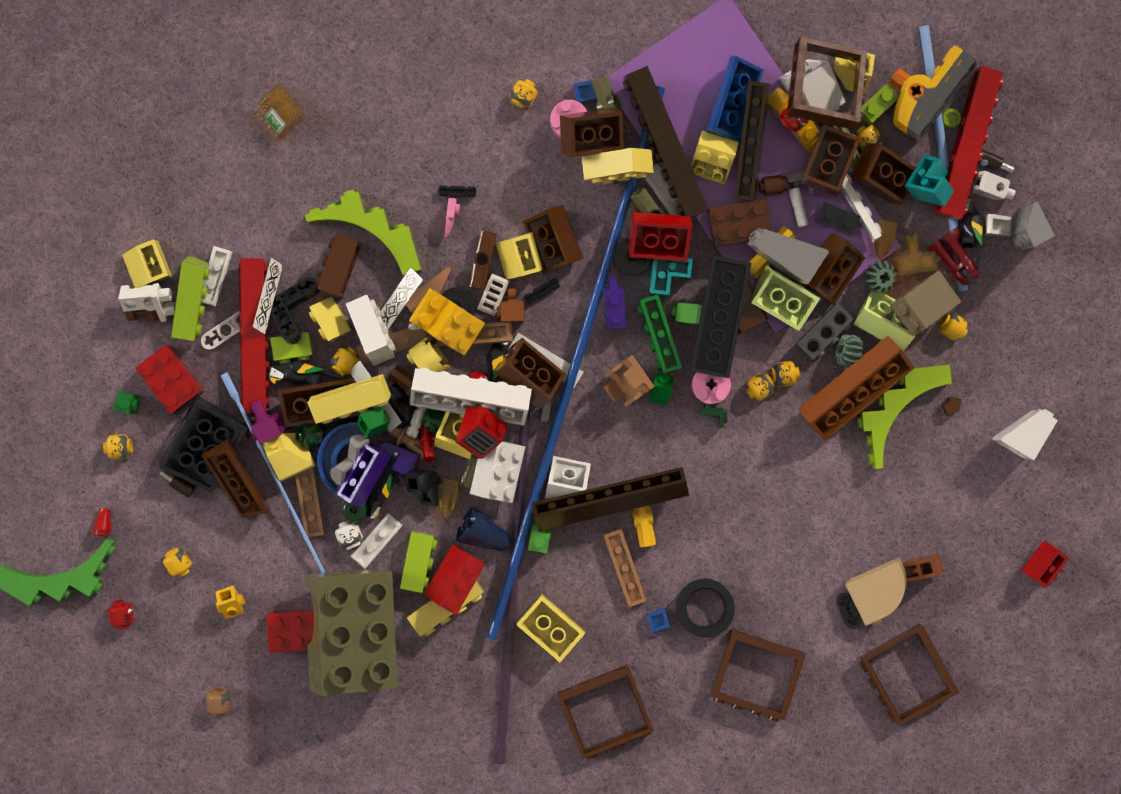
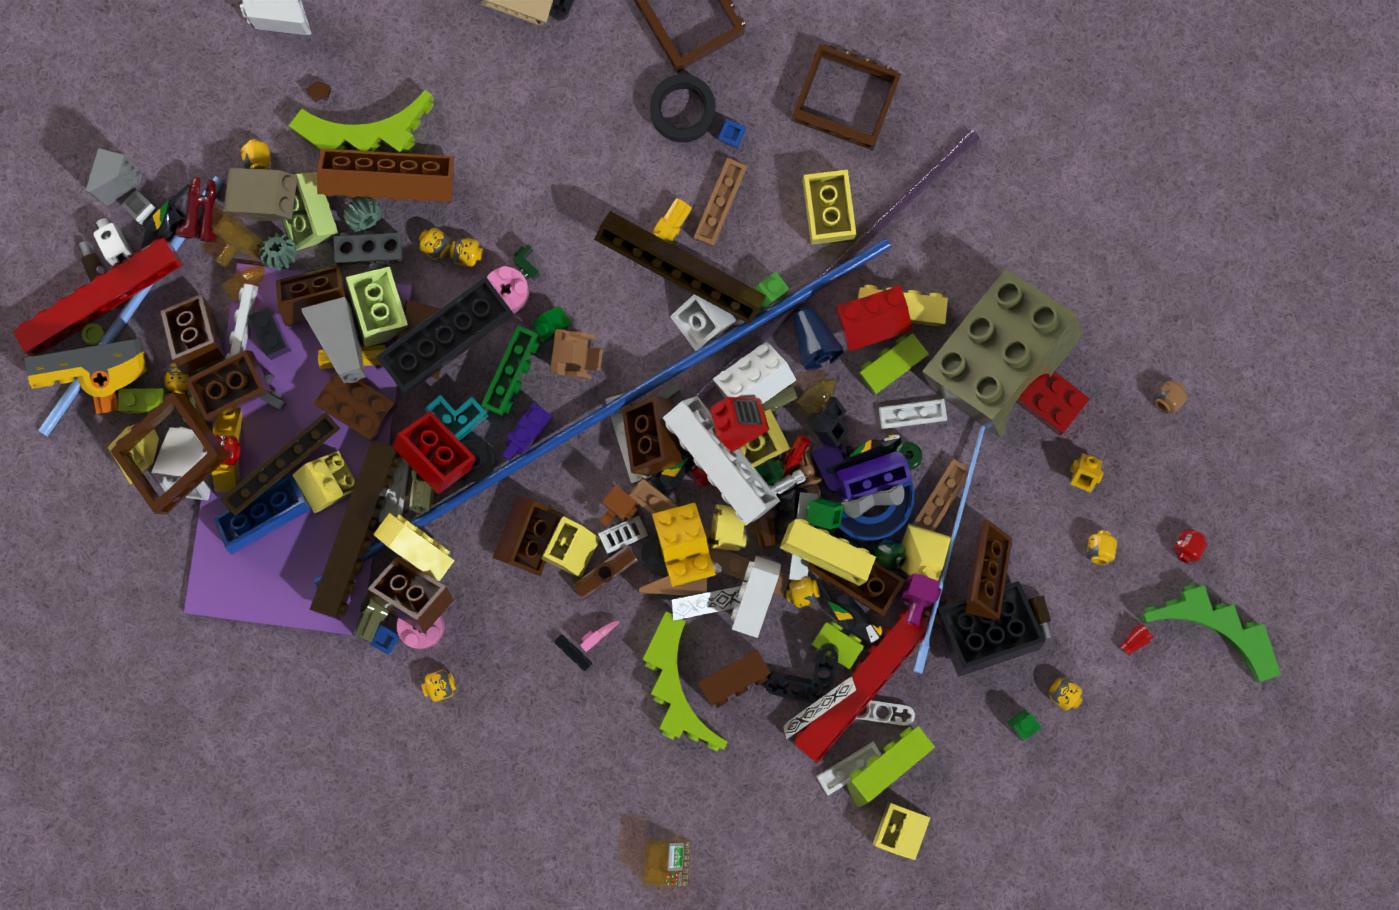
camera: 140 degrees left, 5 degrees down
(147, 301) = (928, 797): white hips -> none
(169, 379) = (969, 712): red brick -> none
(330, 319) = (783, 638): light yellow slope -> none
(348, 535) = (932, 439): white head -> none
(541, 291) = (578, 500): black axle -> none
(686, 313) = (471, 368): bright green slope -> none
(773, 185) = (297, 411): reddish brown brick -> none
(799, 210) = (294, 371): white piece -> none
(929, 182) = (163, 292): teal brick -> none

